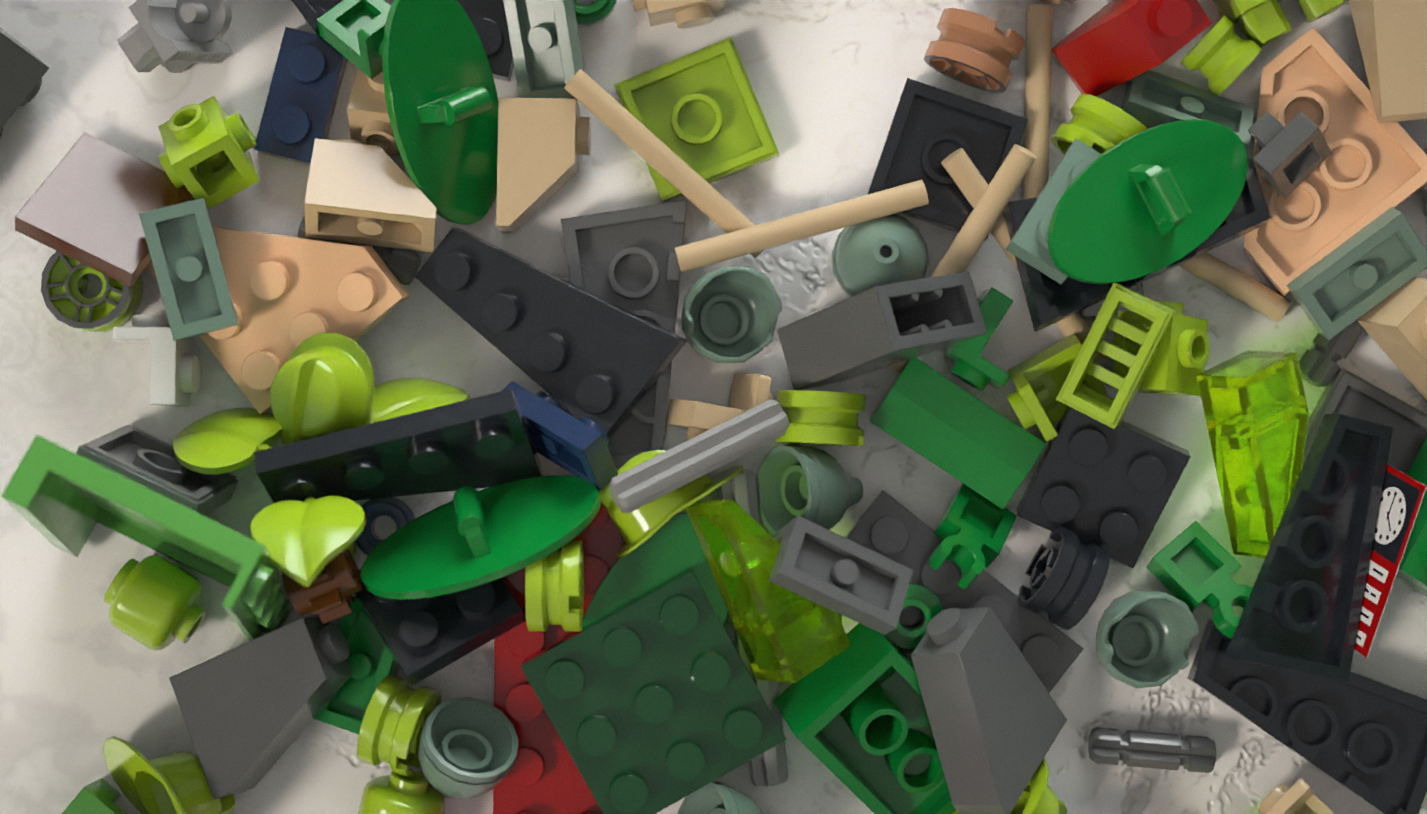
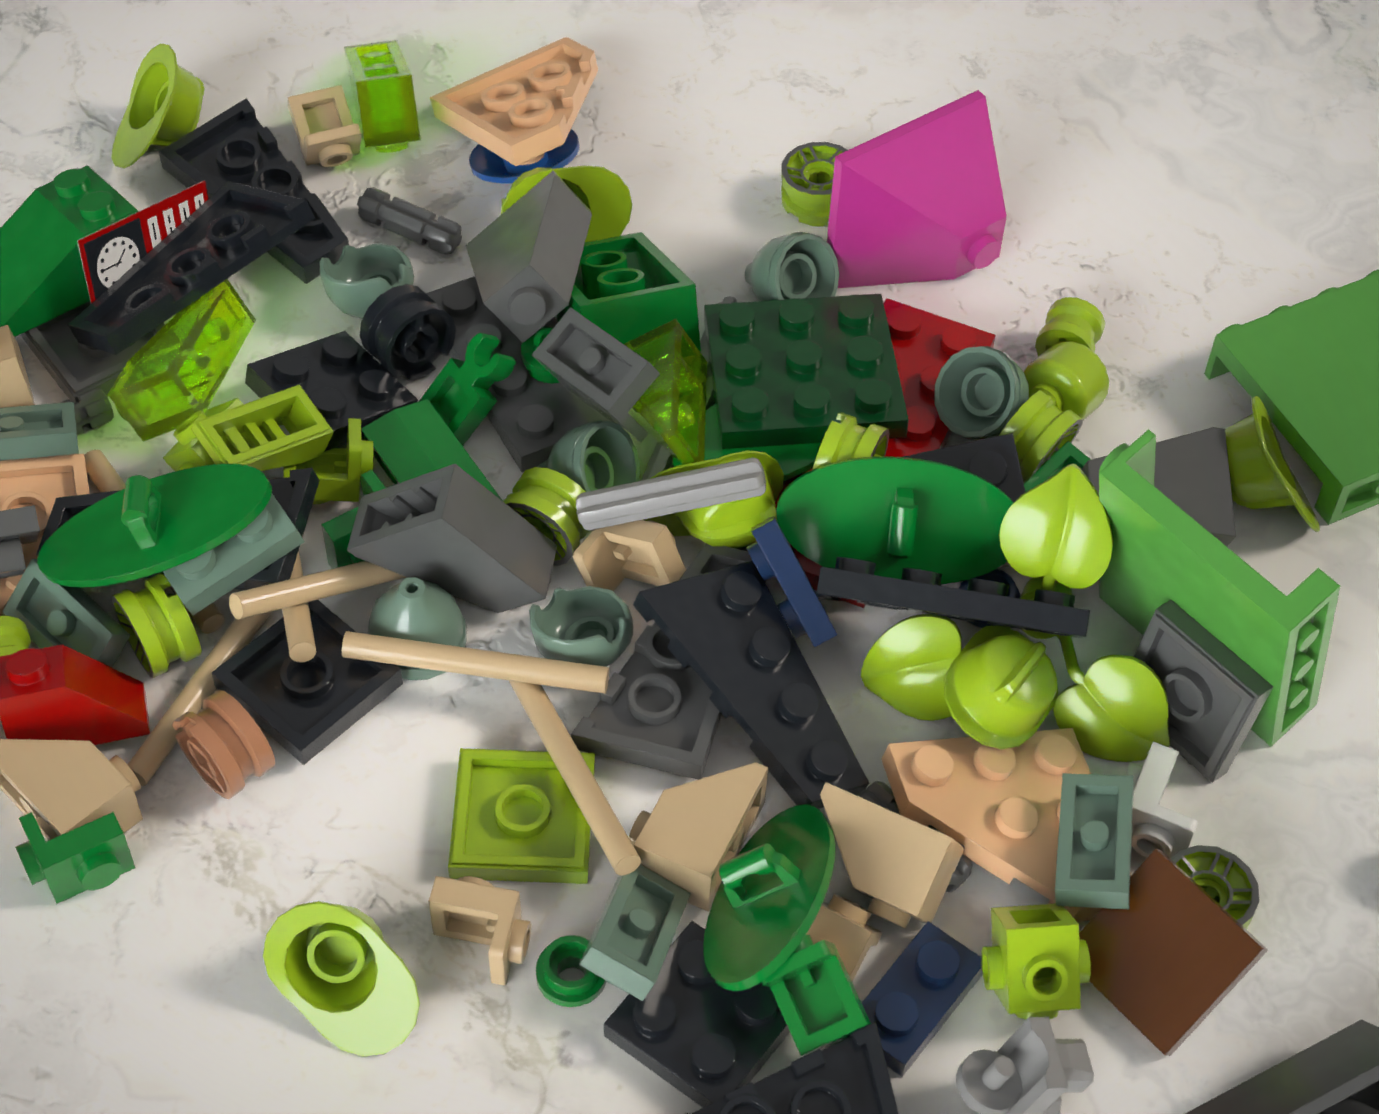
camera: 155 degrees left, 35 degrees down
(1202, 572) = (294, 302): green plate -> none

